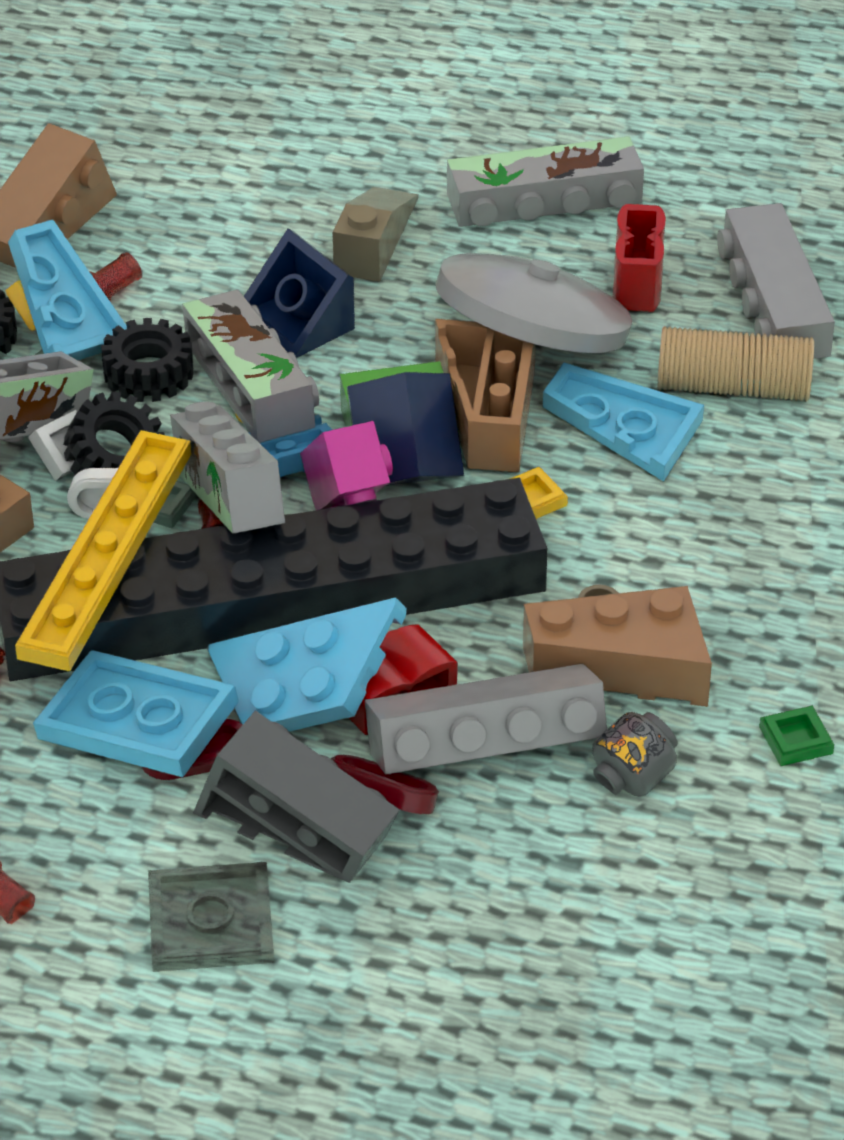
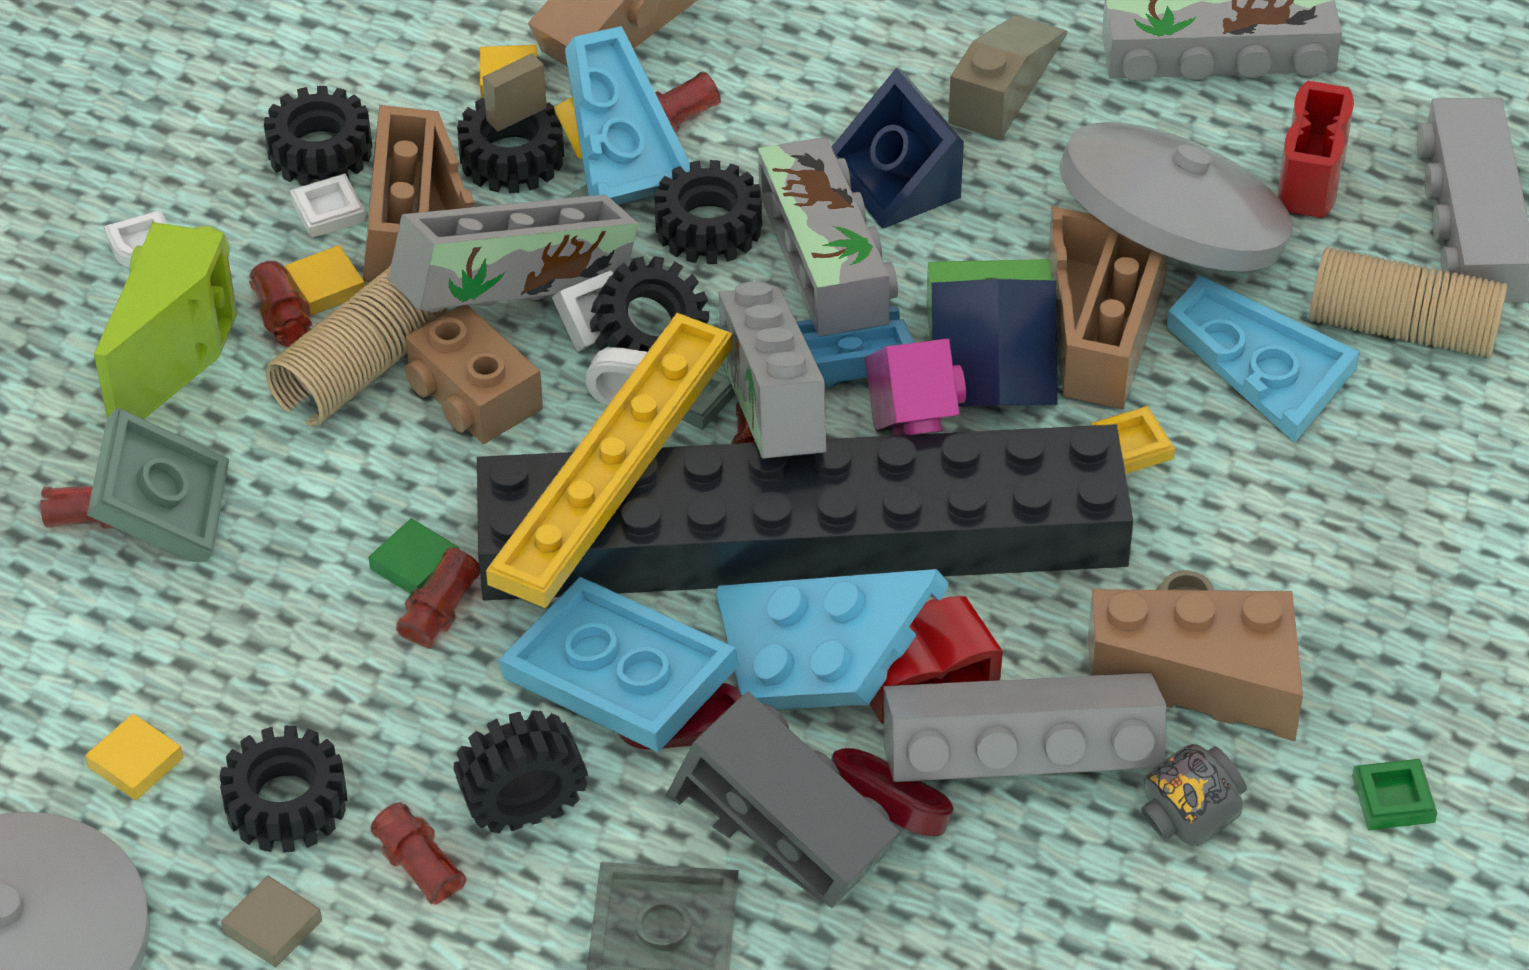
camera: 10 degrees right, 5 degrees up
(75, 780) = (520, 771): none -> black tyre

